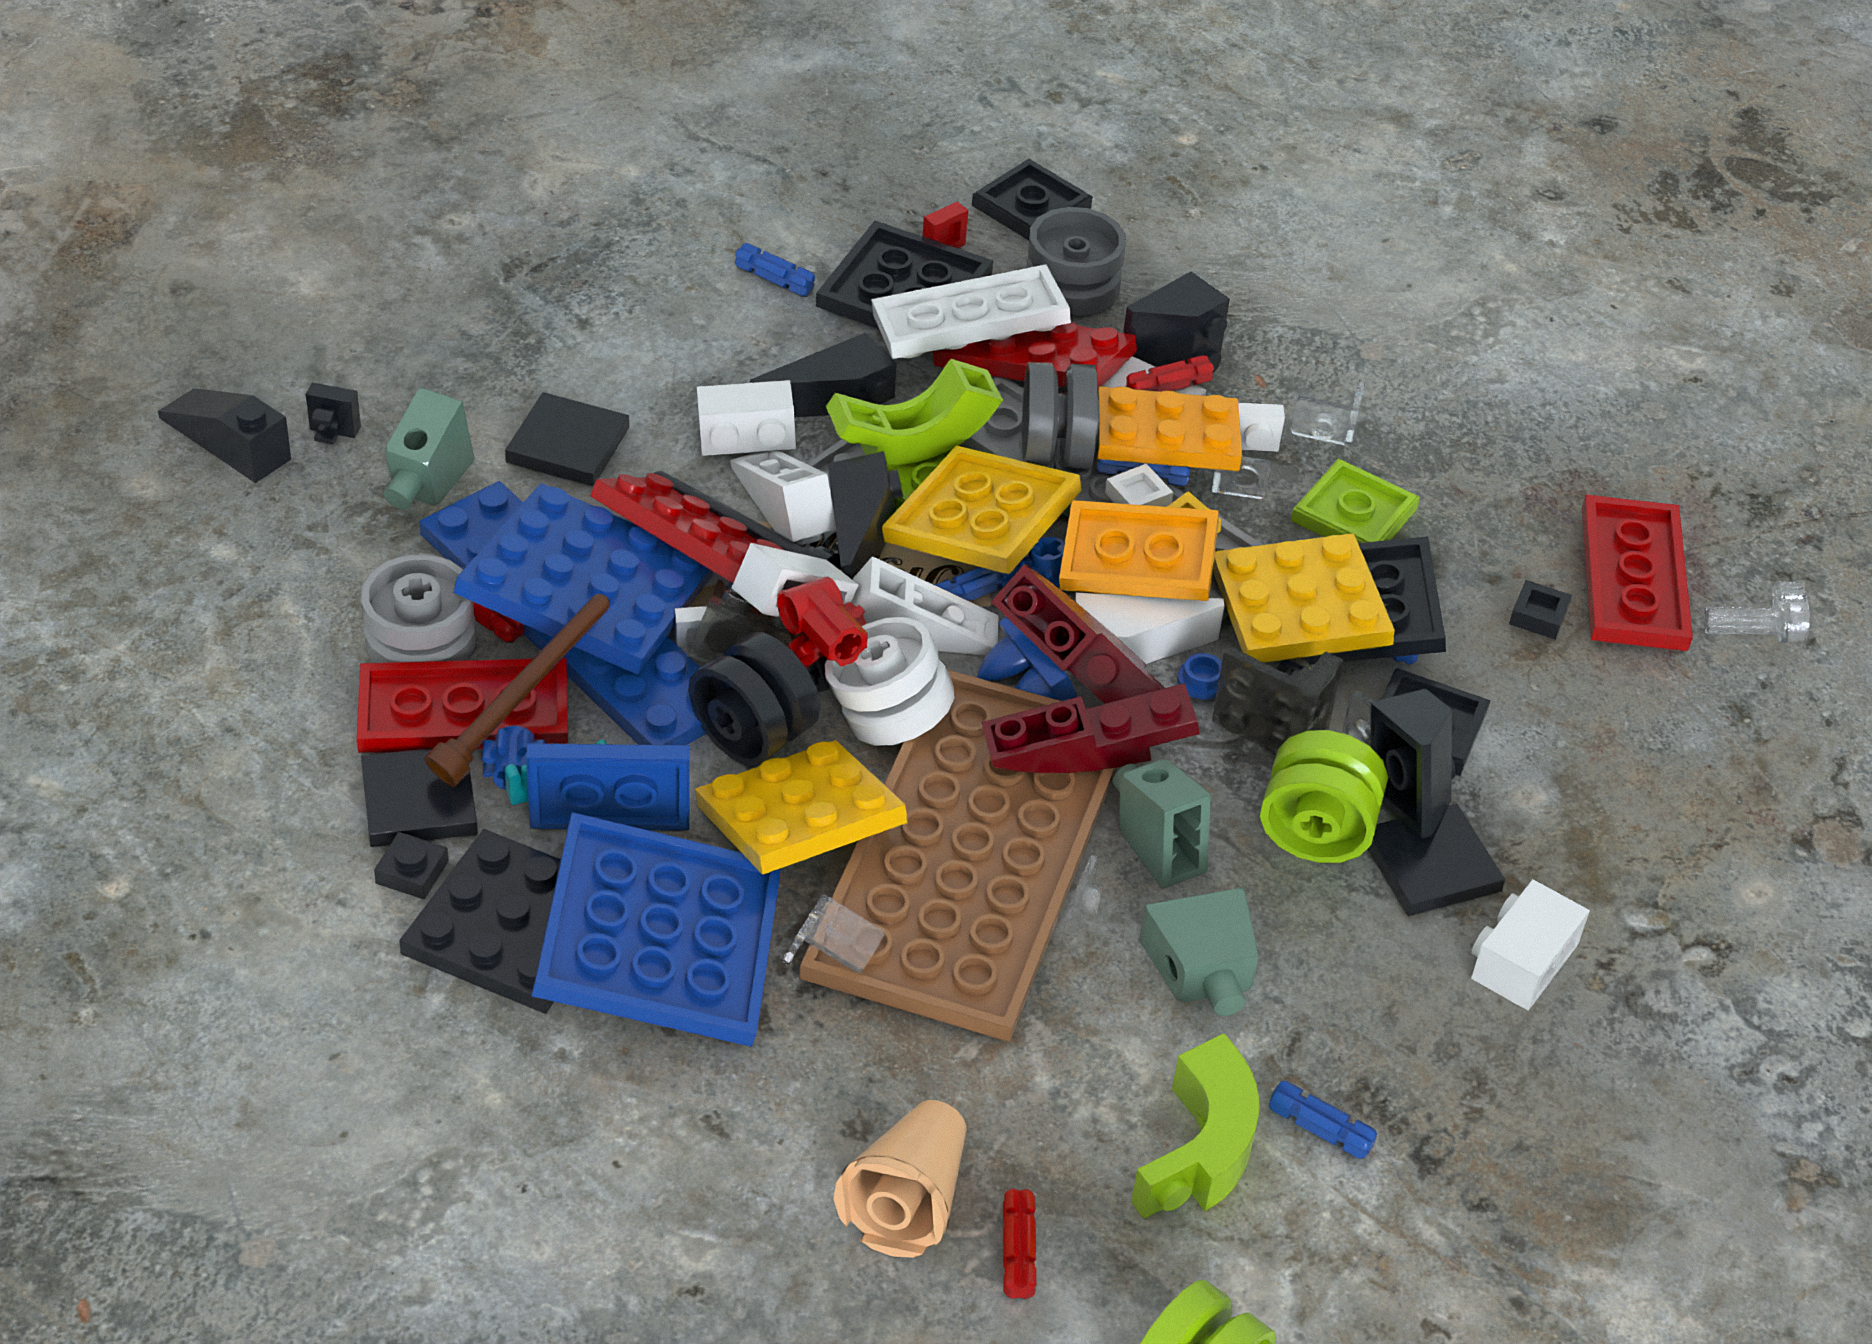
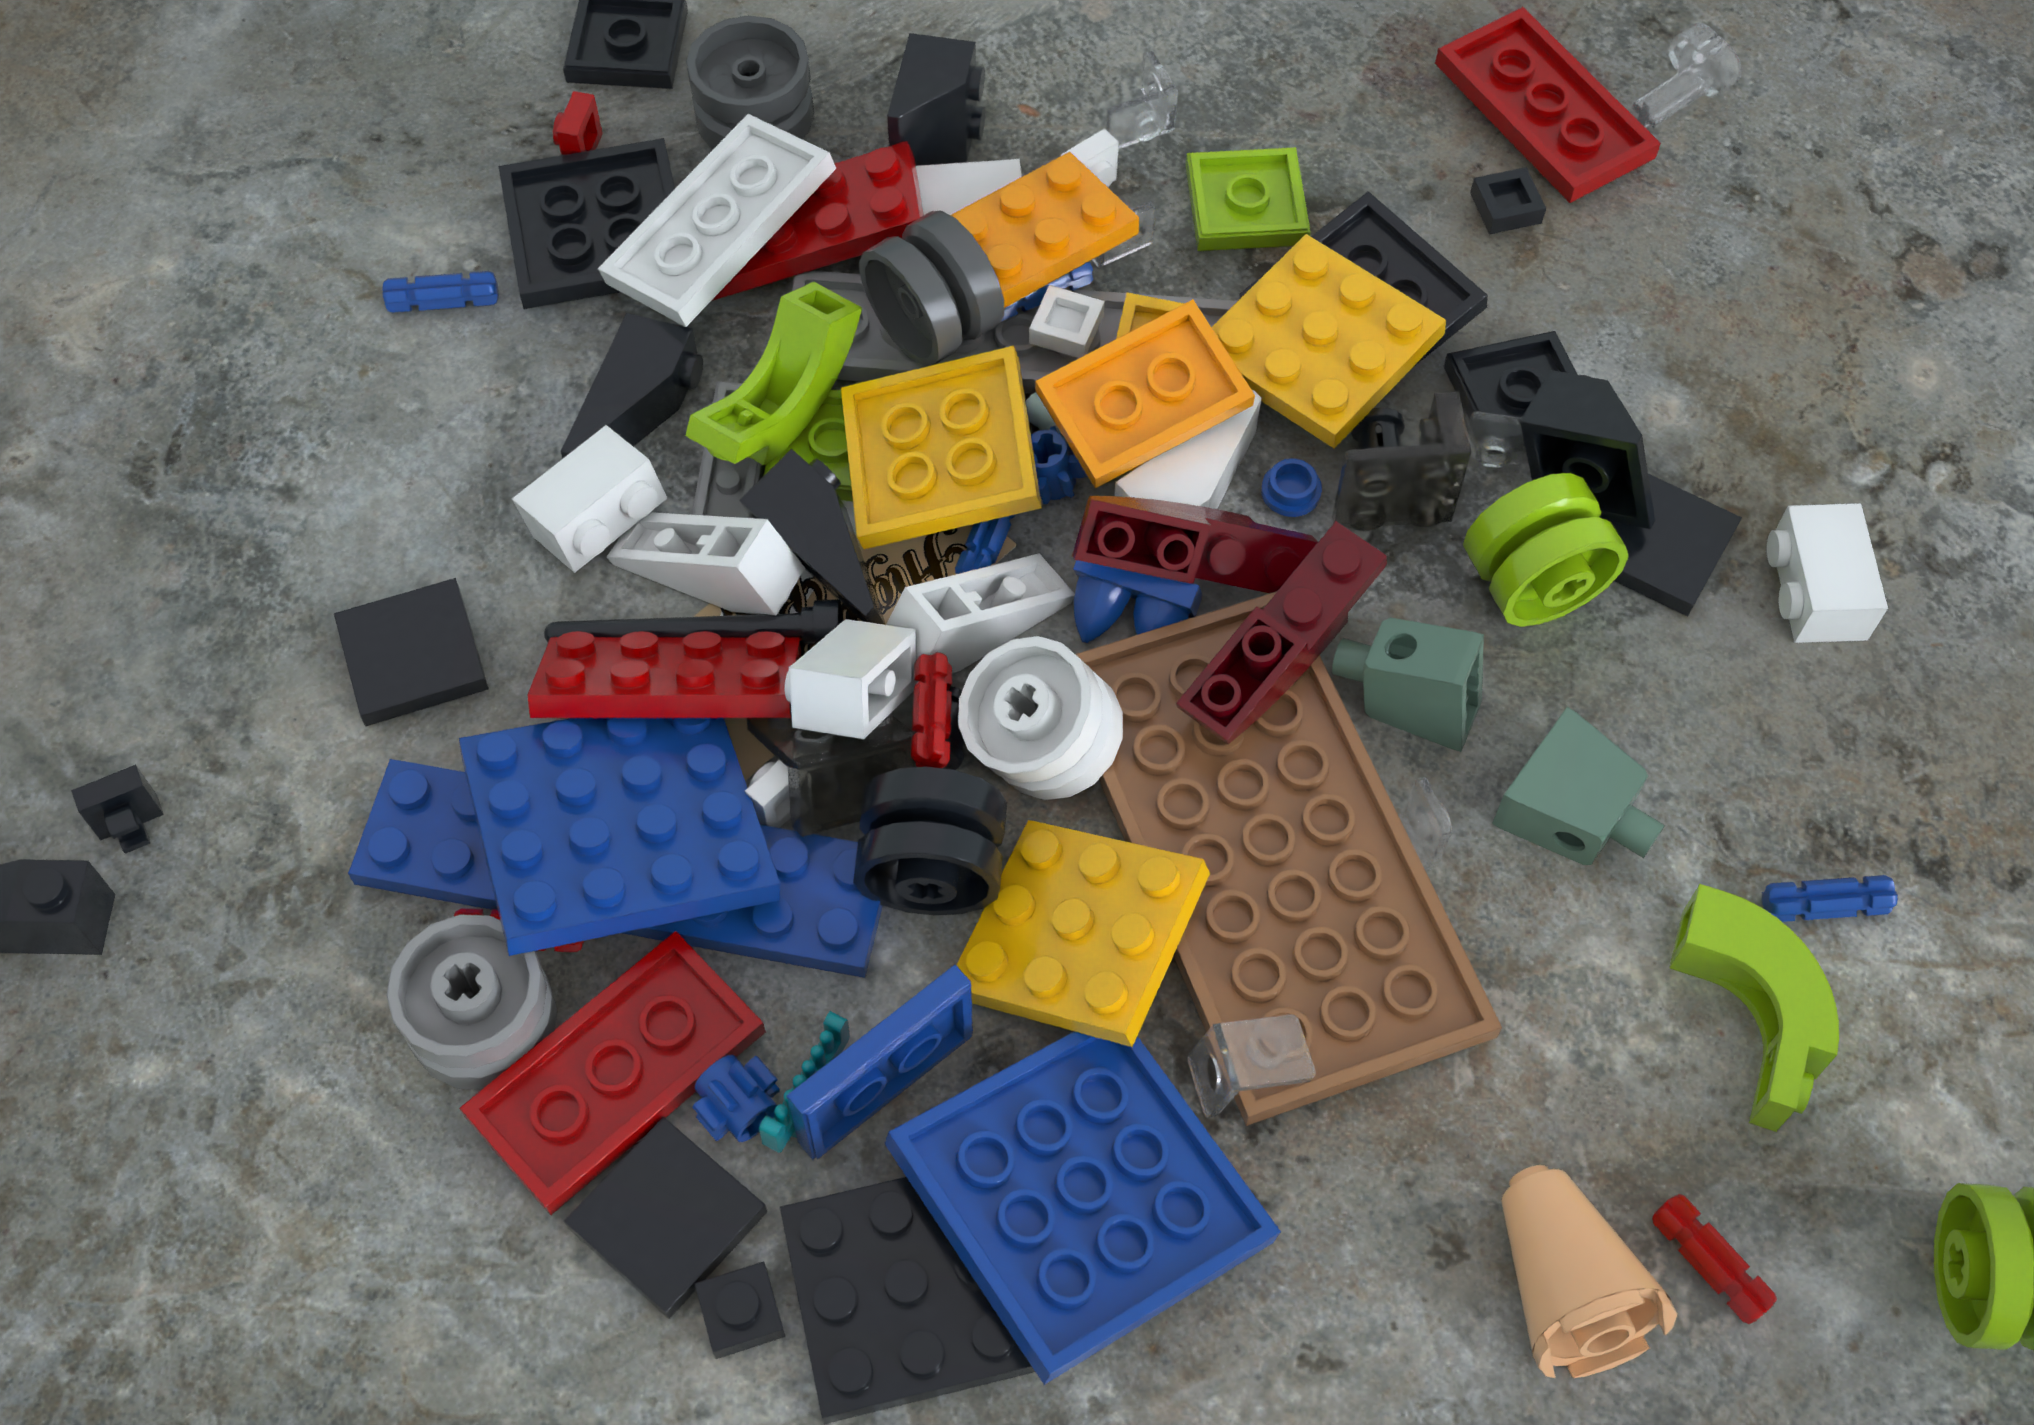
camera: 35 degrees left, 15 degrees up
(428, 450) = (287, 785): sand green torso -> none
(452, 759) = (683, 1152): reddish brown piece -> none
(821, 615) = (923, 698): red piece -> none
(1172, 375) = (981, 167): red axle -> none

